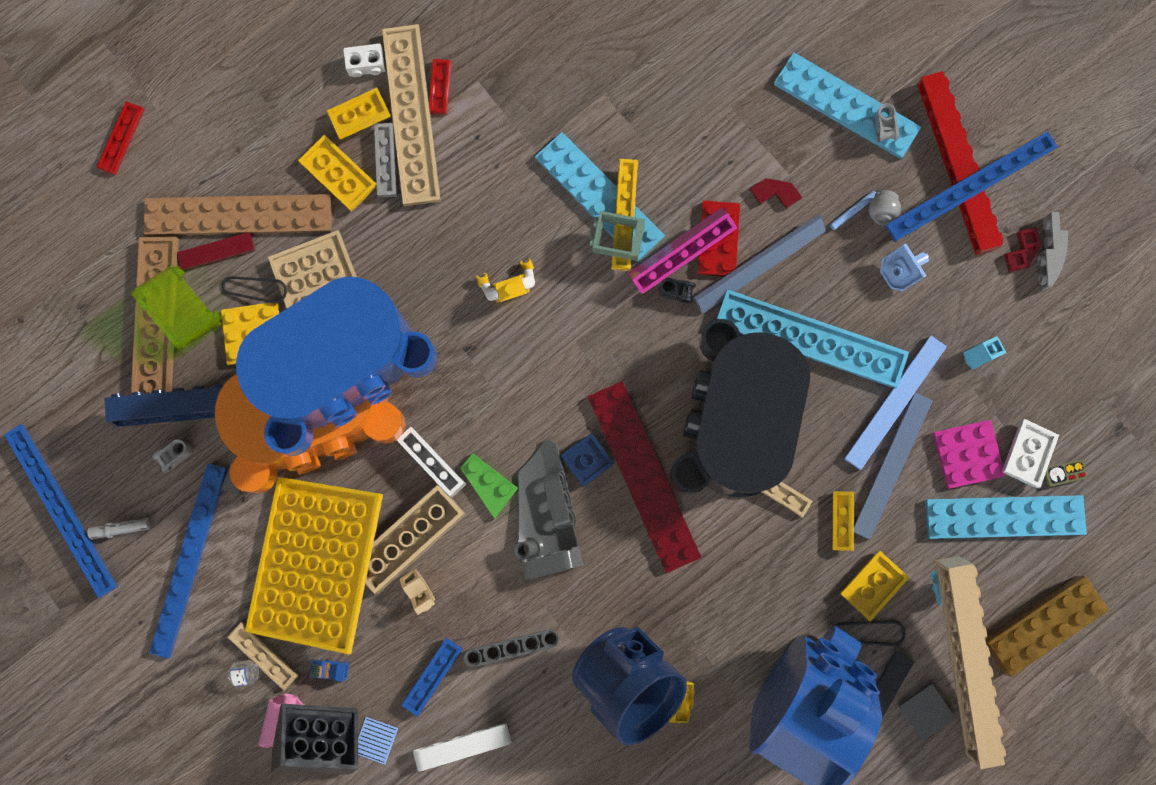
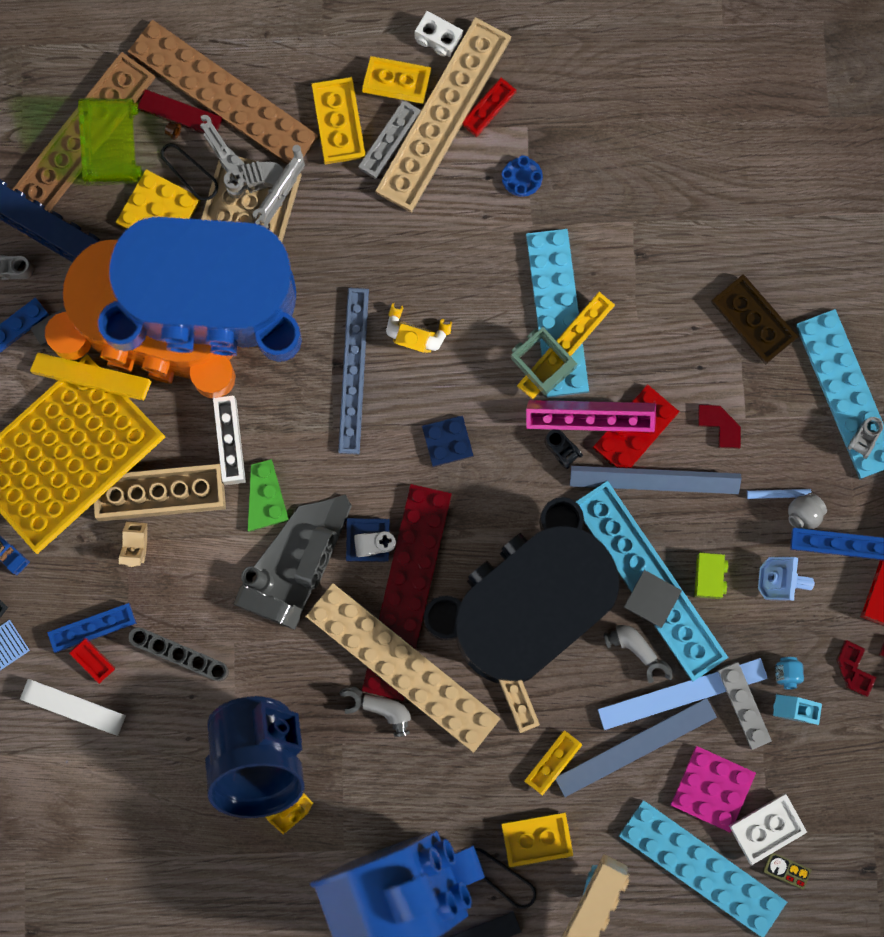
camera: 30 degrees right, 0 degrees up
(220, 267) = (173, 130): none -> reddish brown piece
(292, 491) = (90, 376): none -> yellow tile
(305, 255) = (255, 175): none -> light grey piece
(450, 701) = (92, 660): none -> red tile
(484, 345) = (353, 371): none -> sand blue tile
(501, 118) = (522, 176): none -> blue dish
(590, 346) = (447, 441): none -> dark blue plate
(591, 461) = (369, 543): none -> light grey piece
(684, 533) = (403, 667): none -> tan plate
(698, 570) = (392, 710): none -> light grey piece
(743, 100) = (754, 319): none -> dark brown plate
(824, 349) = (652, 599): none -> dark grey tile
(830, 390) = (631, 639): none -> light grey piece
(851, 303) = (710, 576): none -> lime brick
(945, 377) = (744, 705): none -> light grey plate
(959, 330) = (789, 672): none -> dark azure head
(992, 292) = (854, 678): none -> dark red tile

